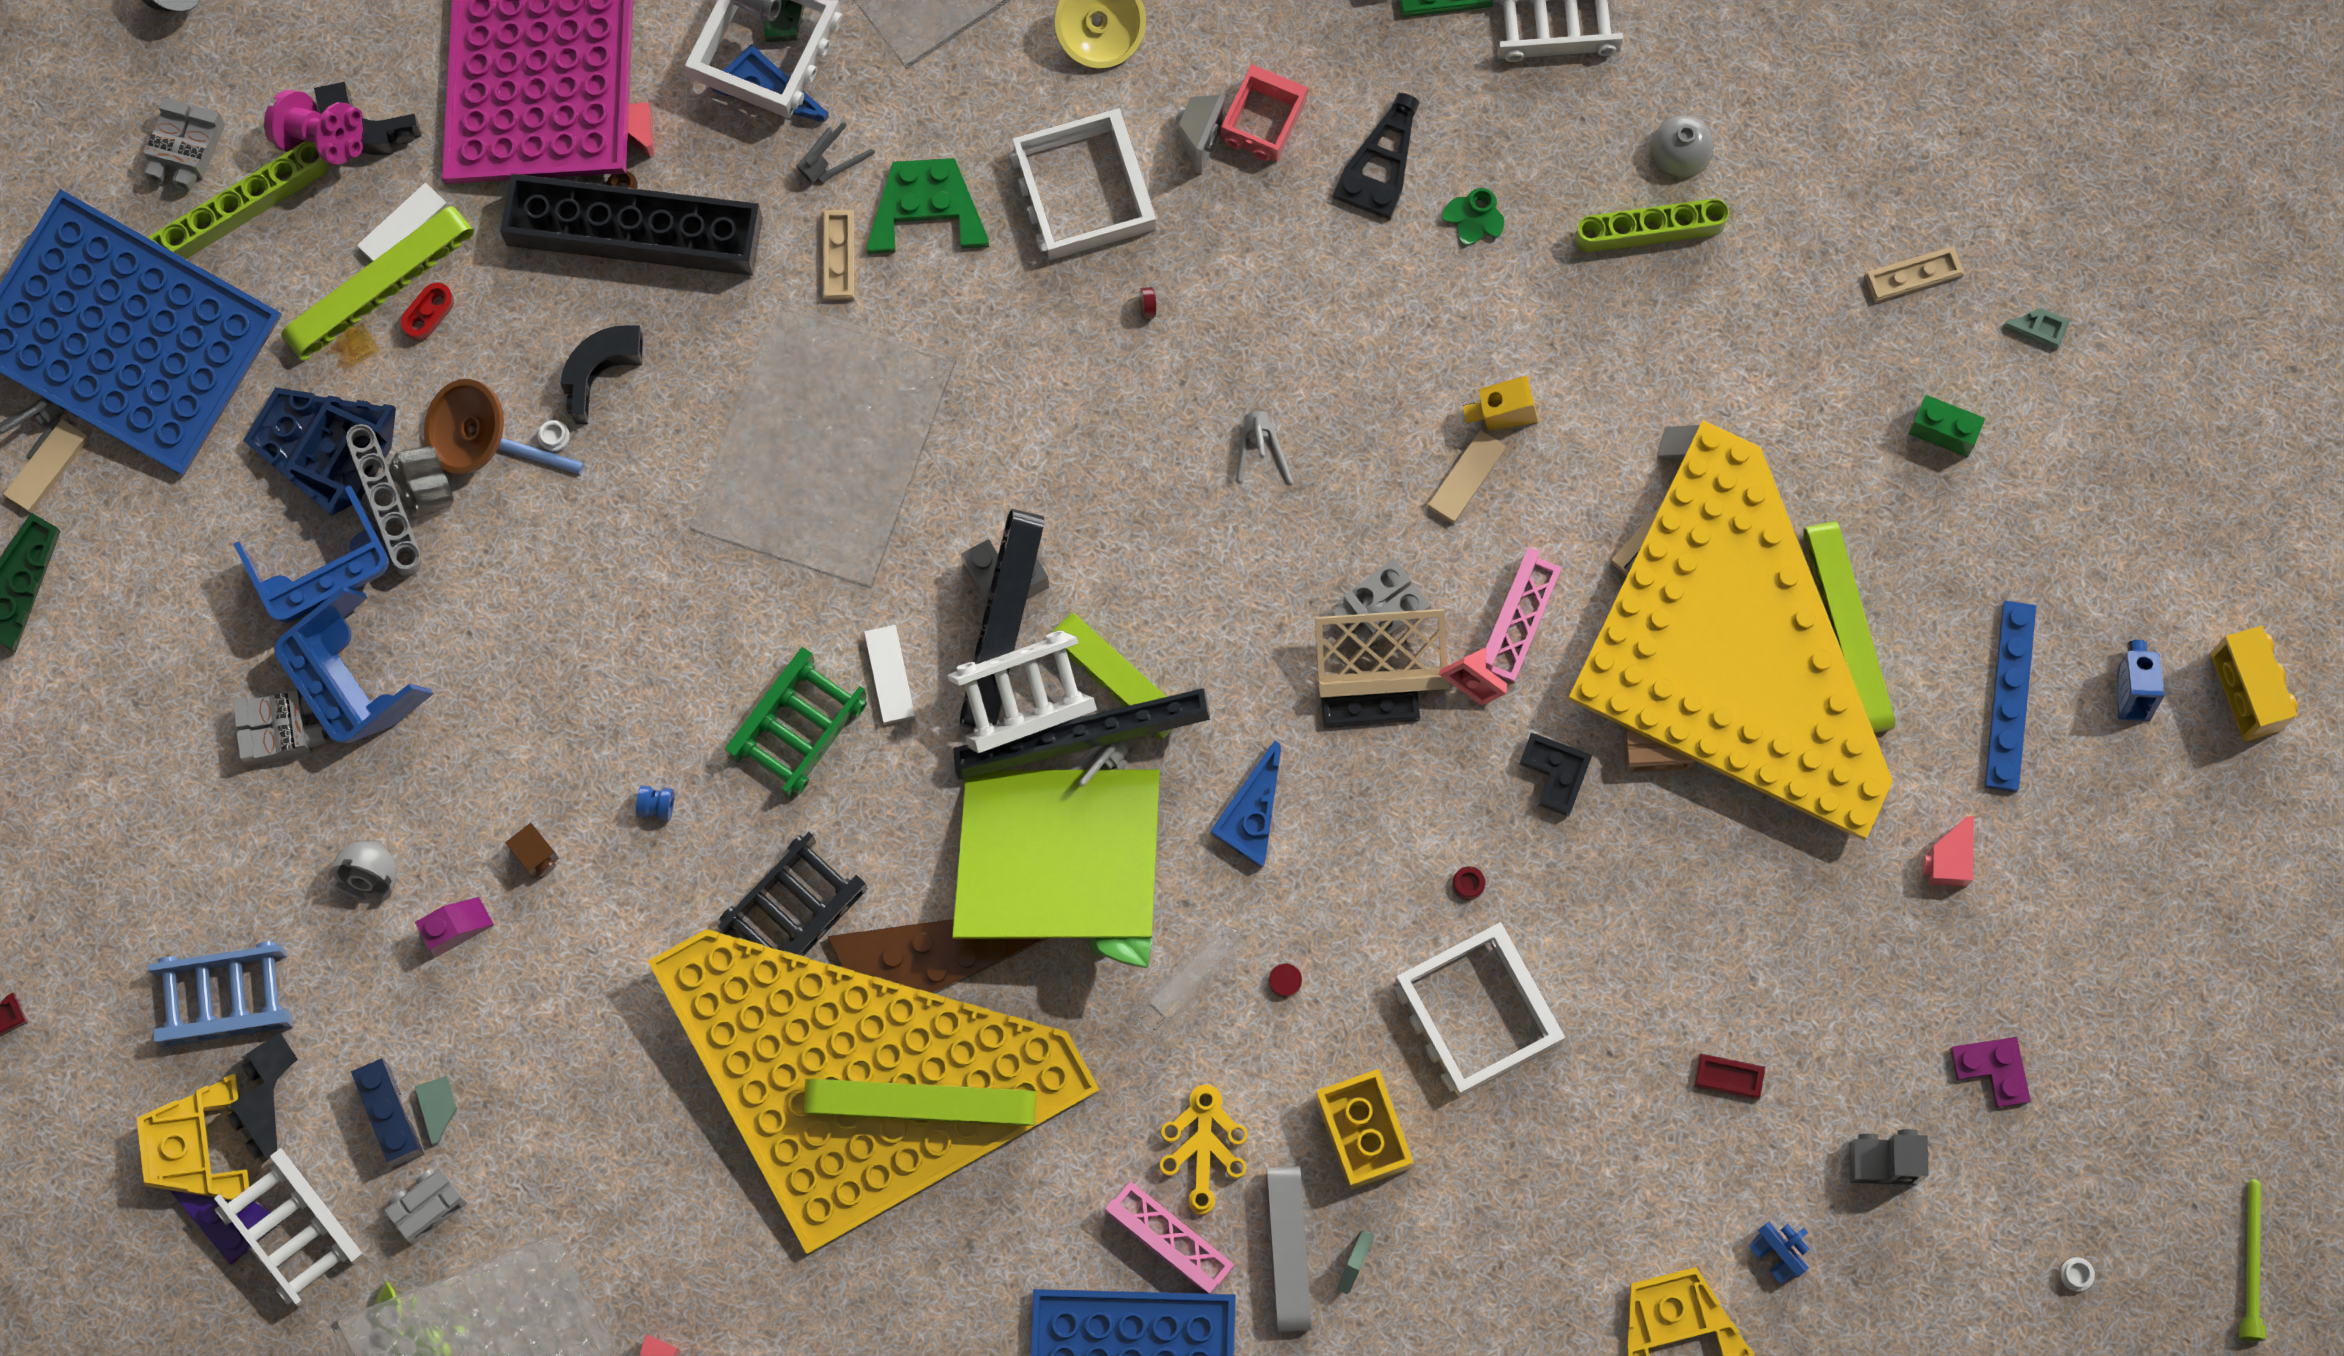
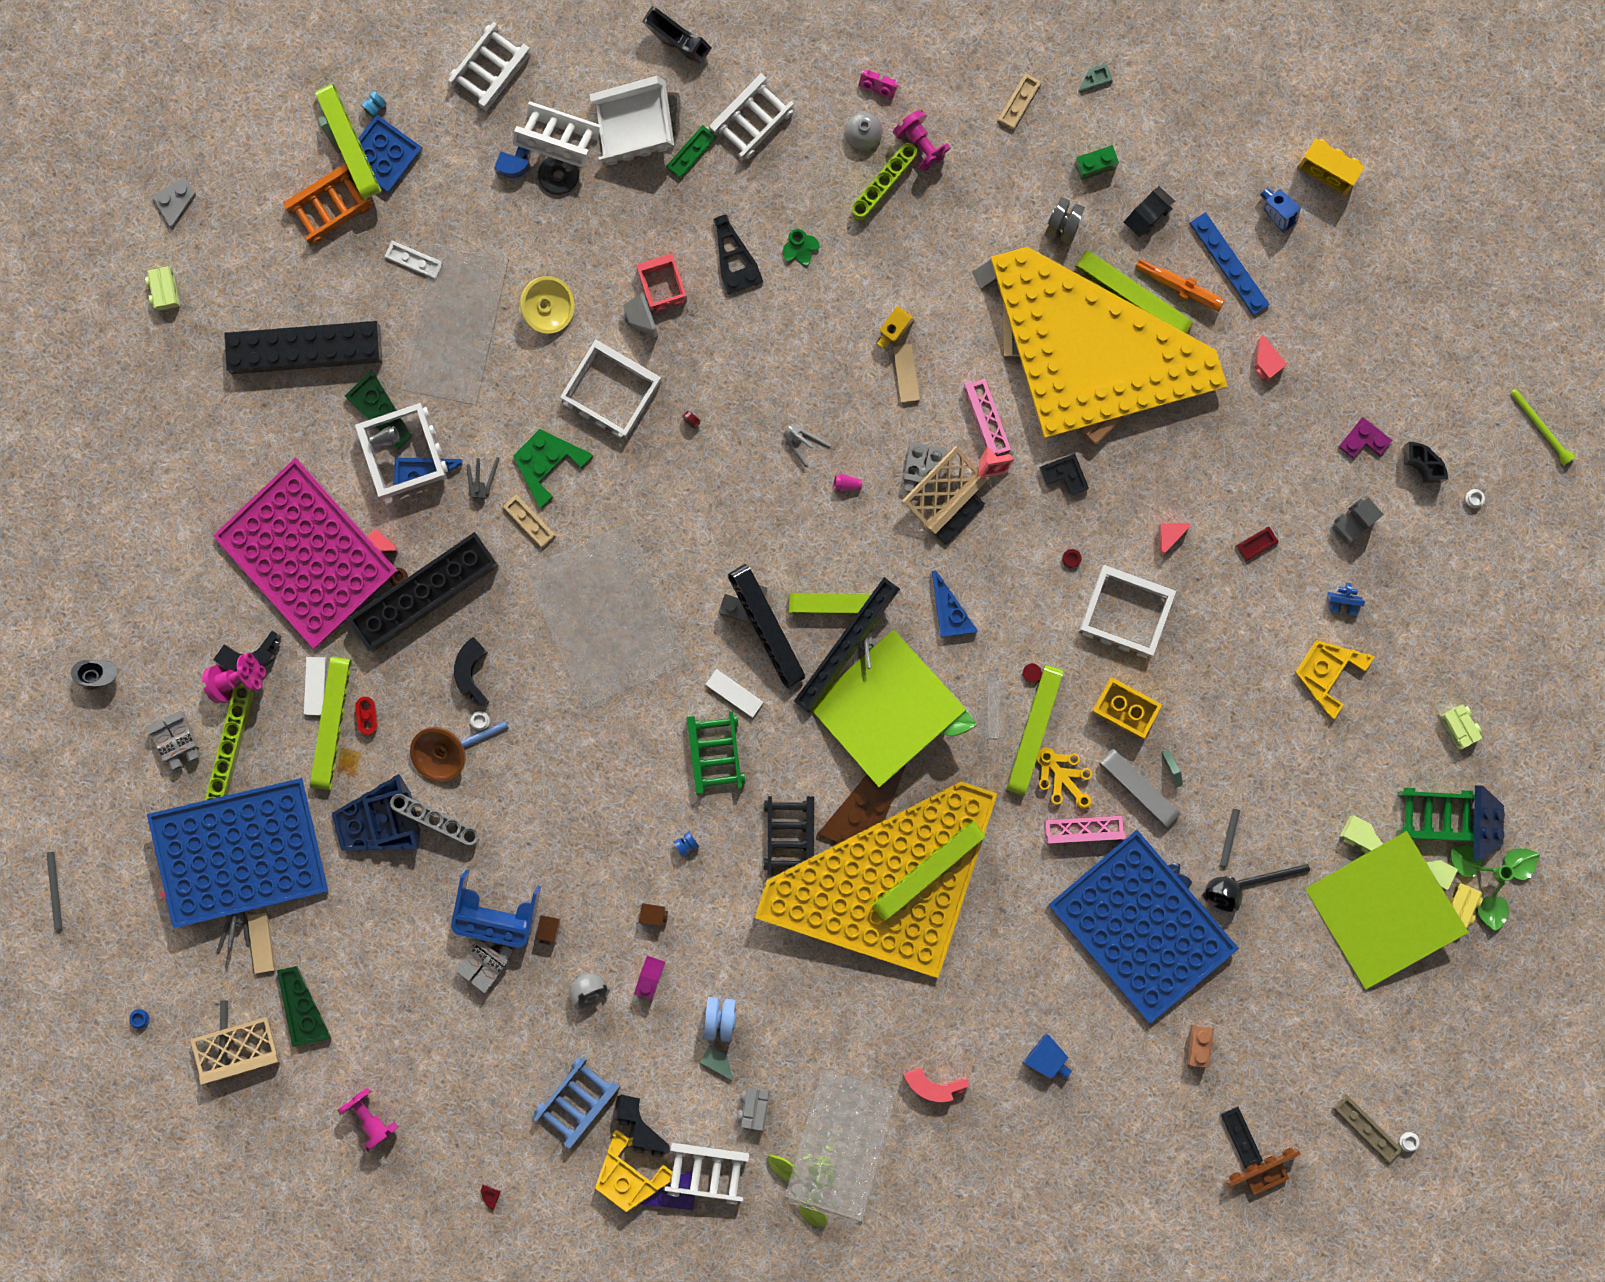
camera: 45 degrees left, 10 degrees up
(291, 600) = (440, 903): blue windscreen -> none
(386, 1113) = (700, 1085): dark blue arch -> none
(390, 754) = (547, 929): none -> reddish brown brick
(421, 481) = (442, 796): clear smoke brick -> none
(486, 1051) = (720, 1019): none -> light blue wheel
(1045, 713) = (821, 654): white fence -> none
(1219, 1052) = (1035, 730): none -> lime beam
(1268, 543) = (846, 483): none -> dark pink cone
(1624, 964) = (1169, 534): none -> coral slope
(1745, 189) = (917, 134): none -> dark pink piece
(1747, 97) = (870, 81): none -> dark pink hinge
(1838, 459) = (1064, 221): none -> dark grey wheel
(1924, 675) = (1185, 287): none -> orange piece
(1961, 542) = (1149, 212): none -> black brick
(2050, 1165) = (1426, 462): none -> black brick

